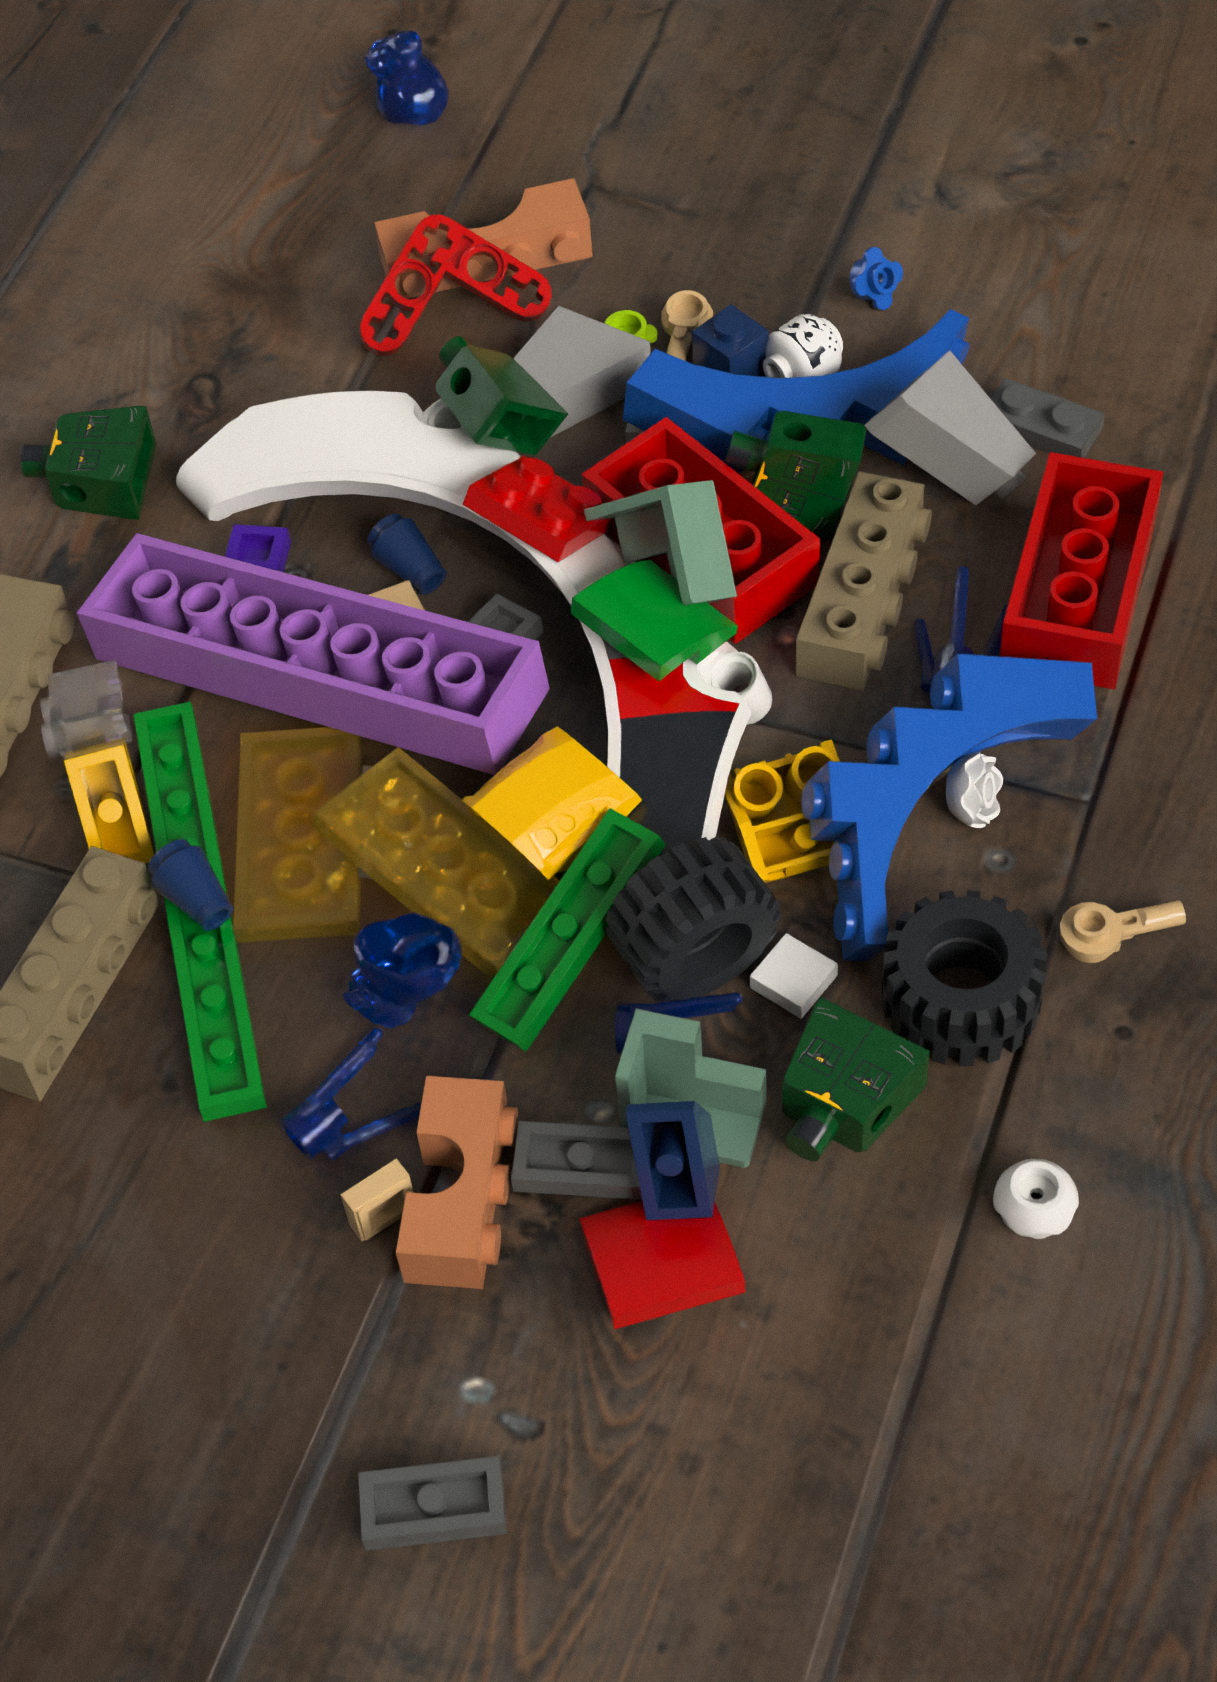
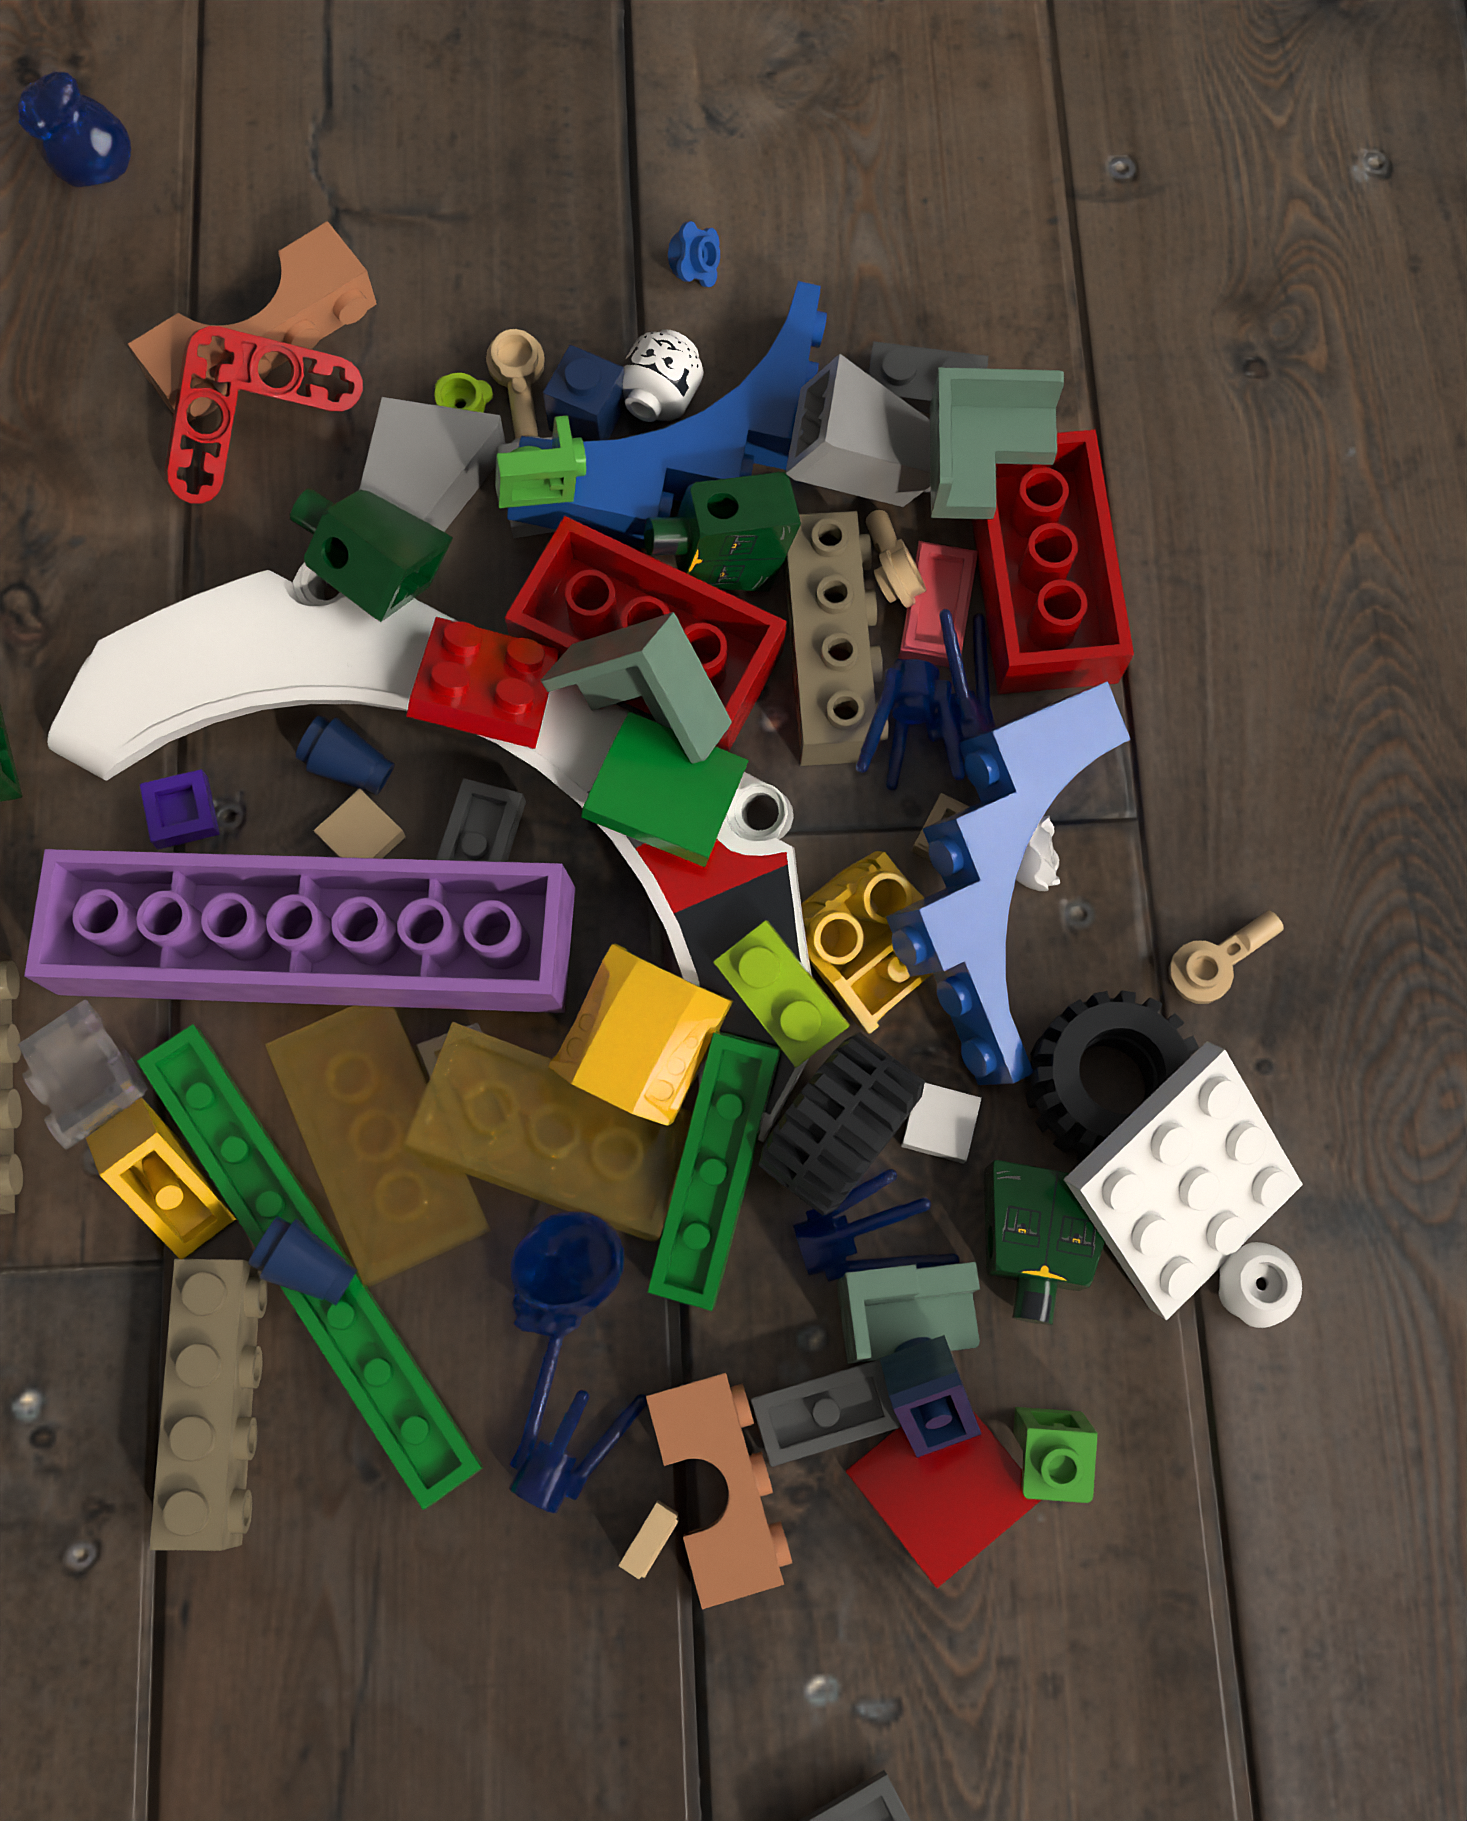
camera: 30 degrees left, 20 degrees up
(655, 370) = (541, 476): none -> bright green bracket
(681, 792) = (781, 993): none -> lime plate
(771, 1249) = (1056, 1454): none -> bright green bracket
(915, 636) = (913, 693): none -> clear blue plant
(943, 540) = (898, 574): none -> tan plate
(989, 1066) = (1185, 1180): none -> white plate
(990, 579) = (948, 583): none -> coral tile
(1055, 430) = (985, 421): none -> sand green panel

